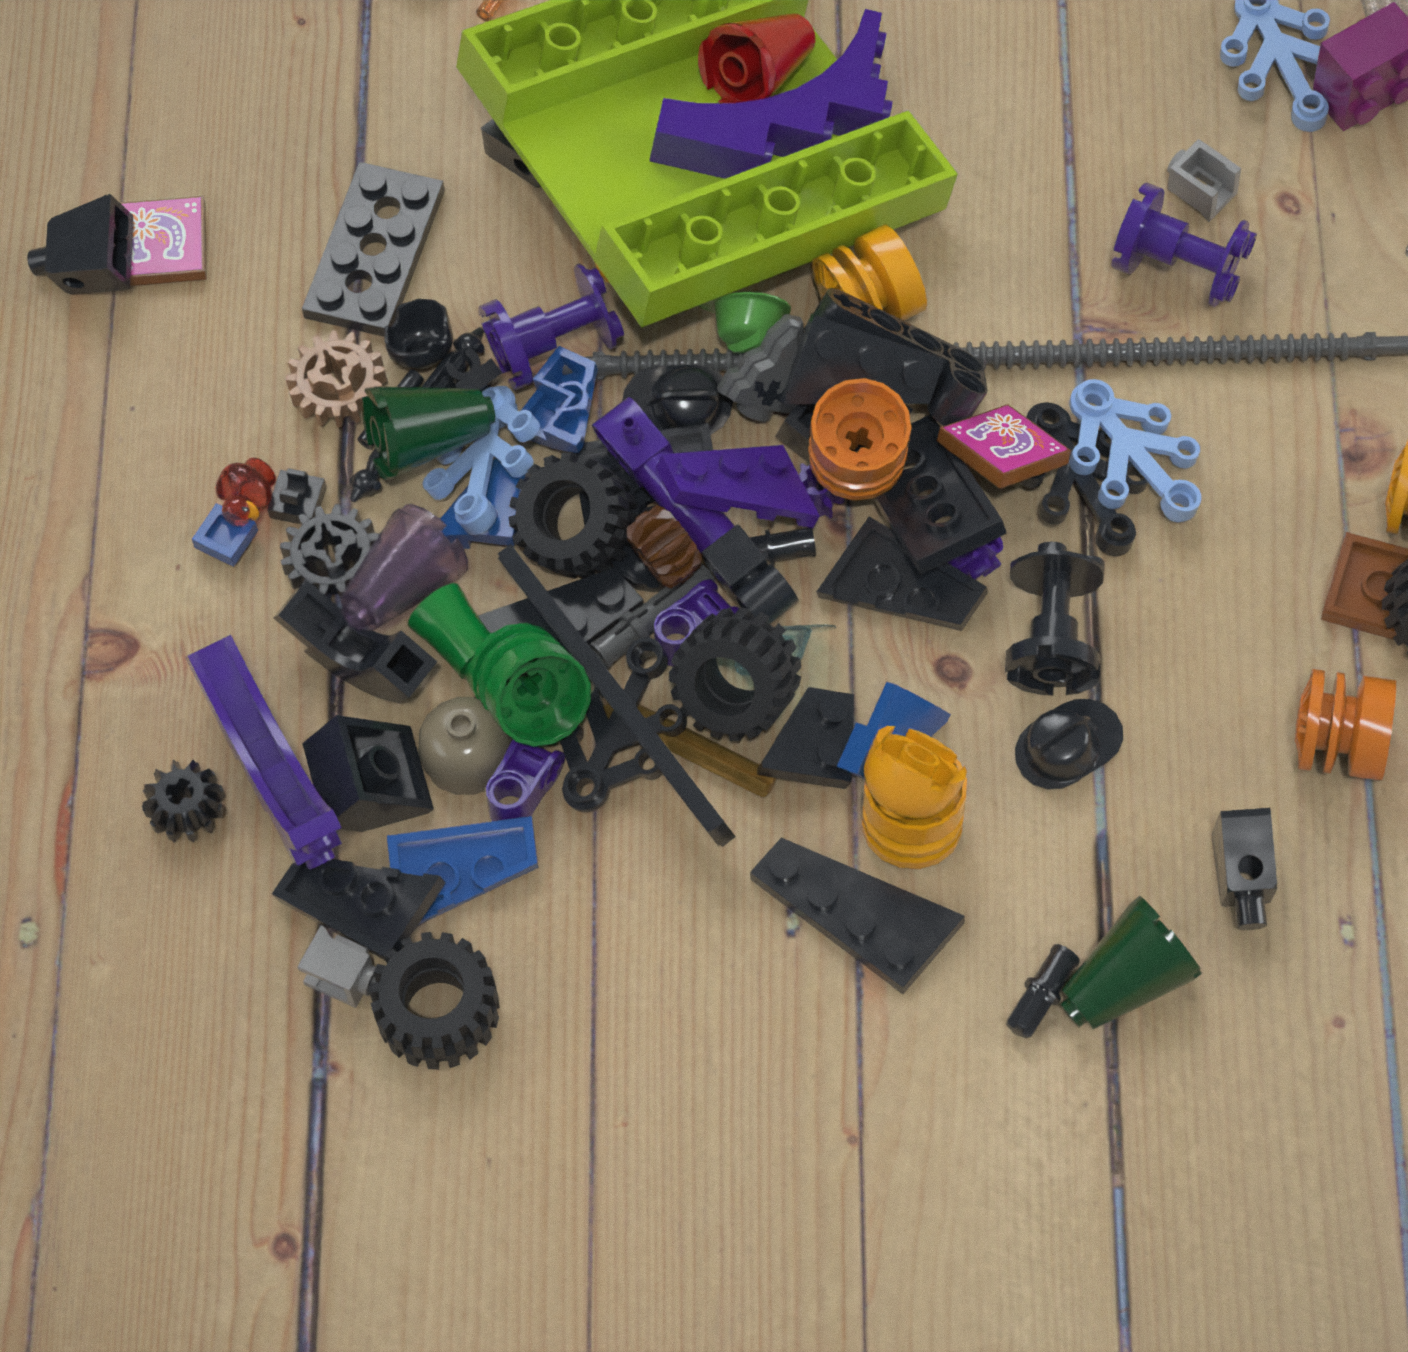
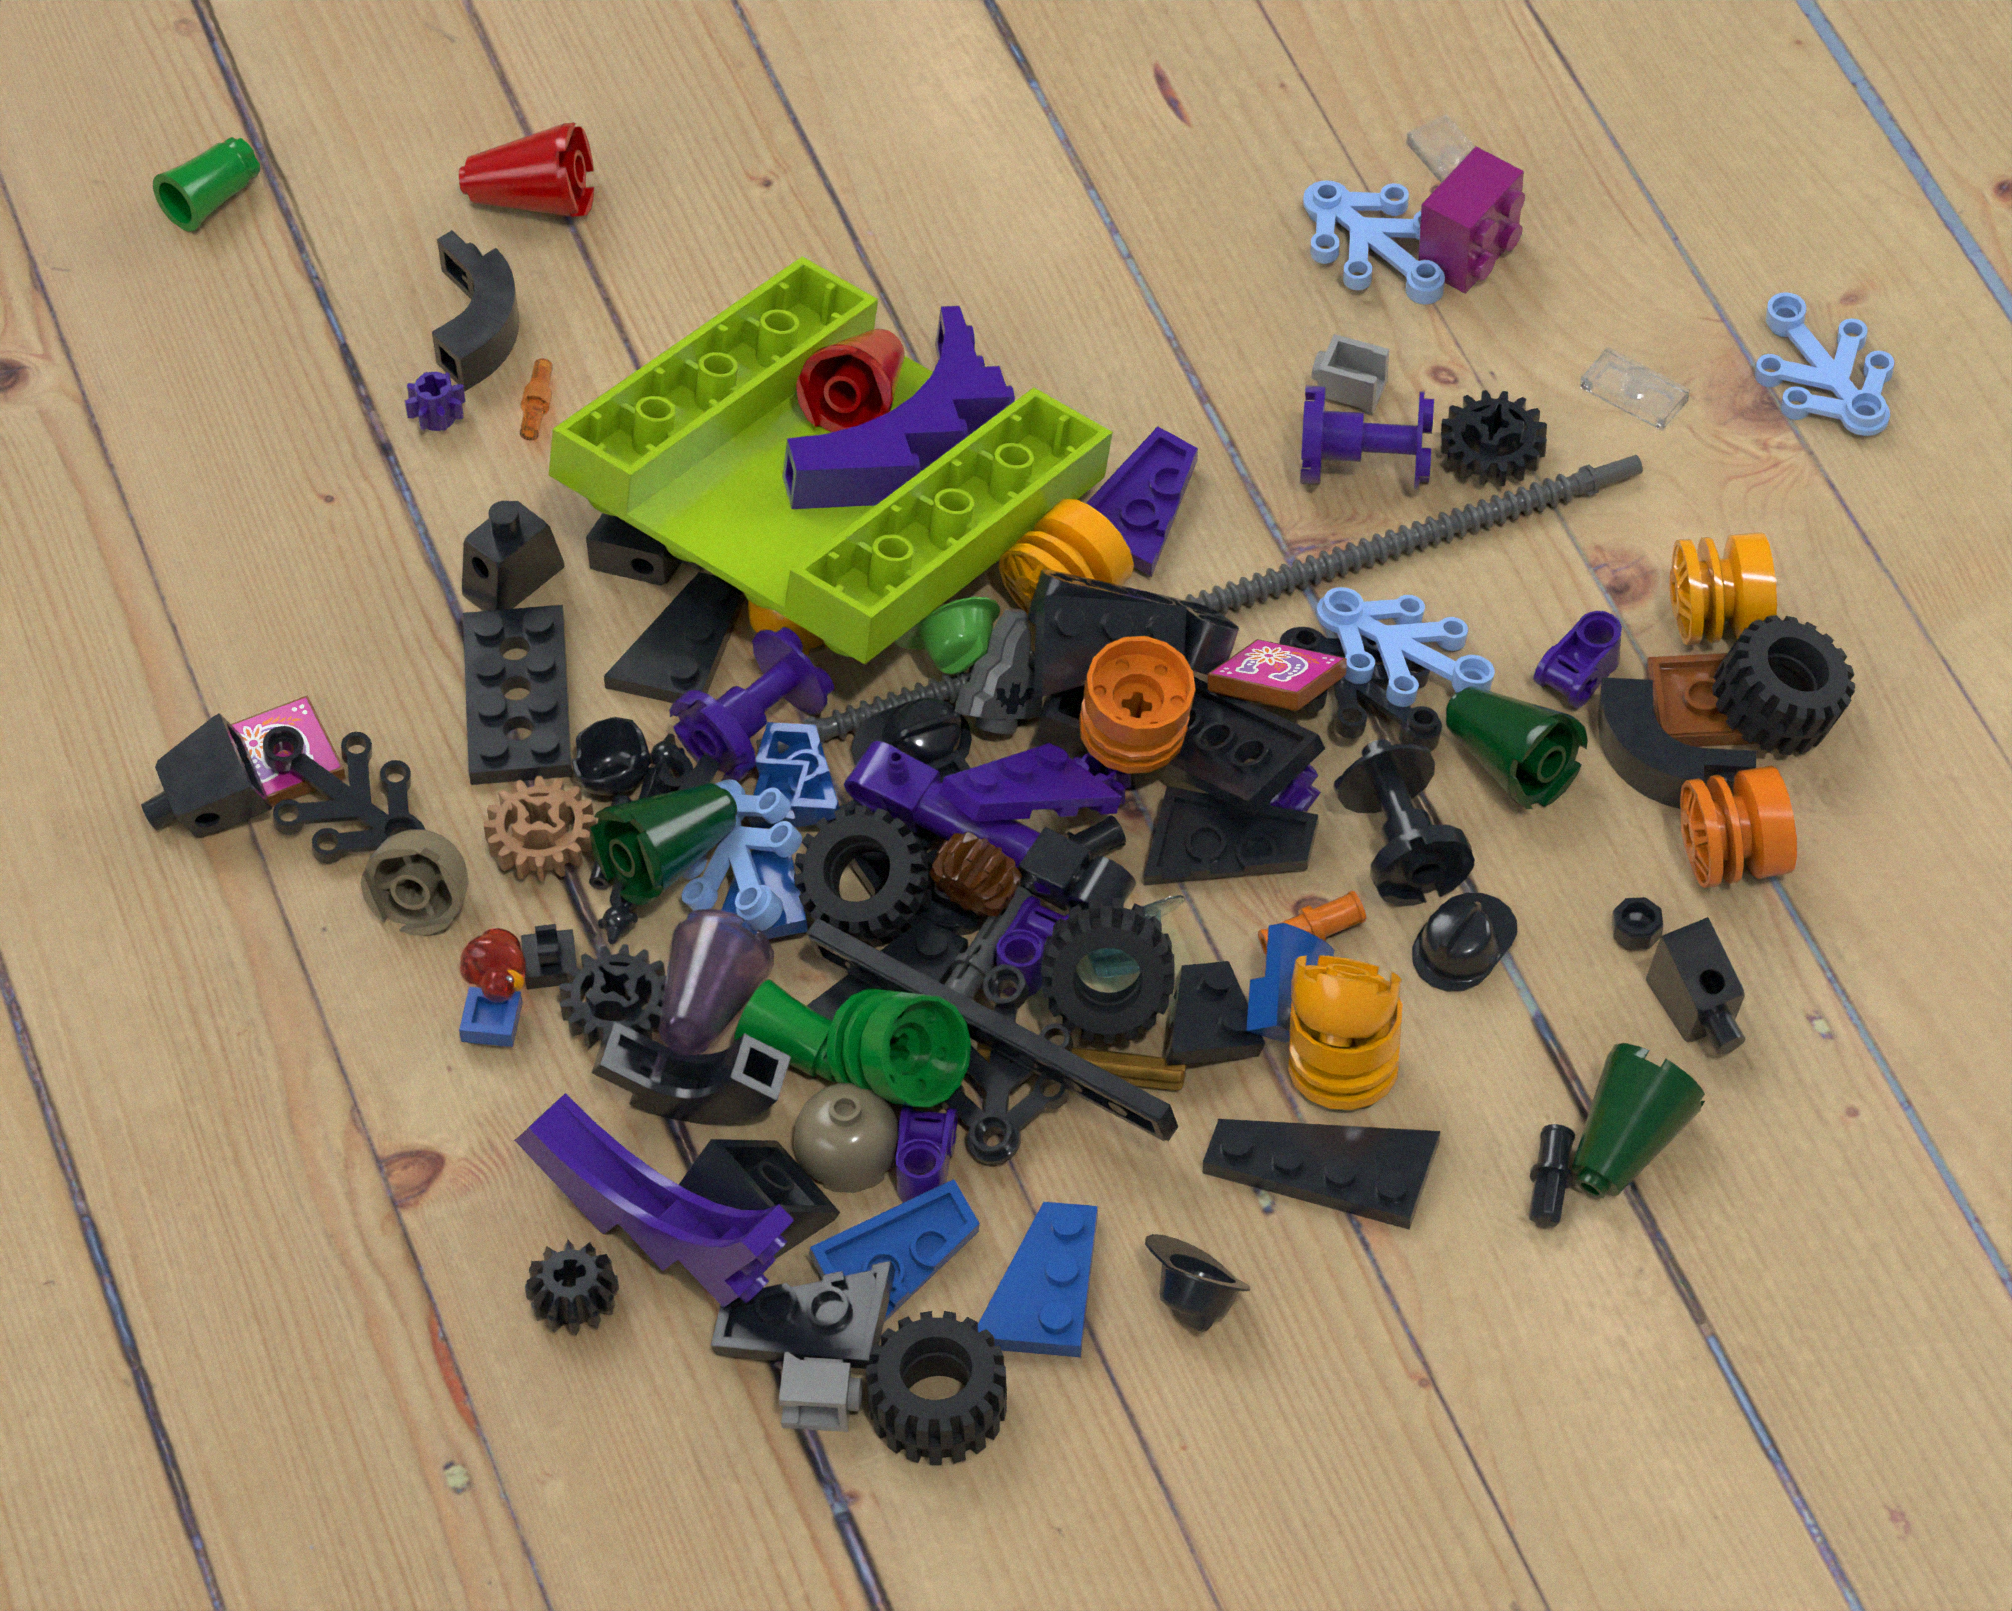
camera: 25 degrees left, 10 degrees down
(195, 303) = (346, 801): none -> black plant
(213, 393) = (416, 881): none -> dark tan cylinder
(412, 125) = (508, 557): none -> black torso
(519, 254) = (681, 644): none -> black wing
(572, 937) = (1047, 1284): none -> blue wing
(693, 976) = (1193, 1282): none -> black piece
(945, 685) = (1325, 919): none -> orange pin
(969, 239) = (1147, 493): none -> dark purple wing
(1190, 579) = (1518, 743): none -> dark green cone
(1224, 781) = (1637, 923): none -> black tile
(1279, 522) = (1578, 664): none -> dark purple piece
(1301, 279) = (1493, 438): none -> black gear
(1305, 632) = (1649, 756): none -> black arch

